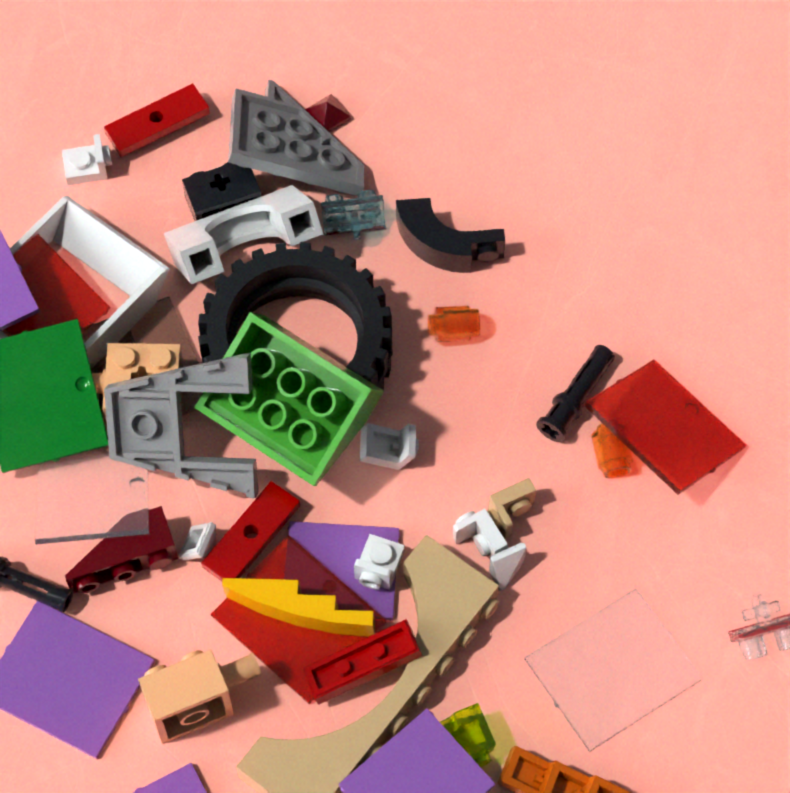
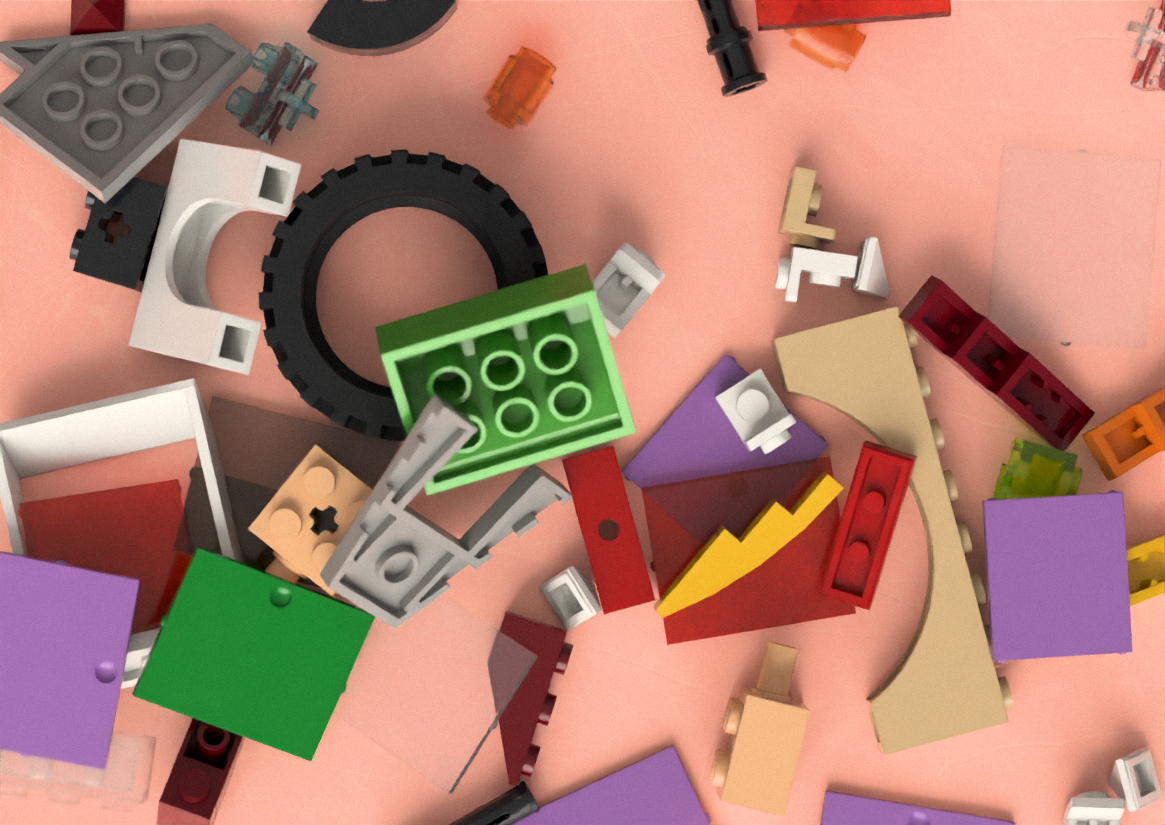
camera: 60 degrees left, 25 degrees up
(511, 668) = (996, 364): none -> dark red slope

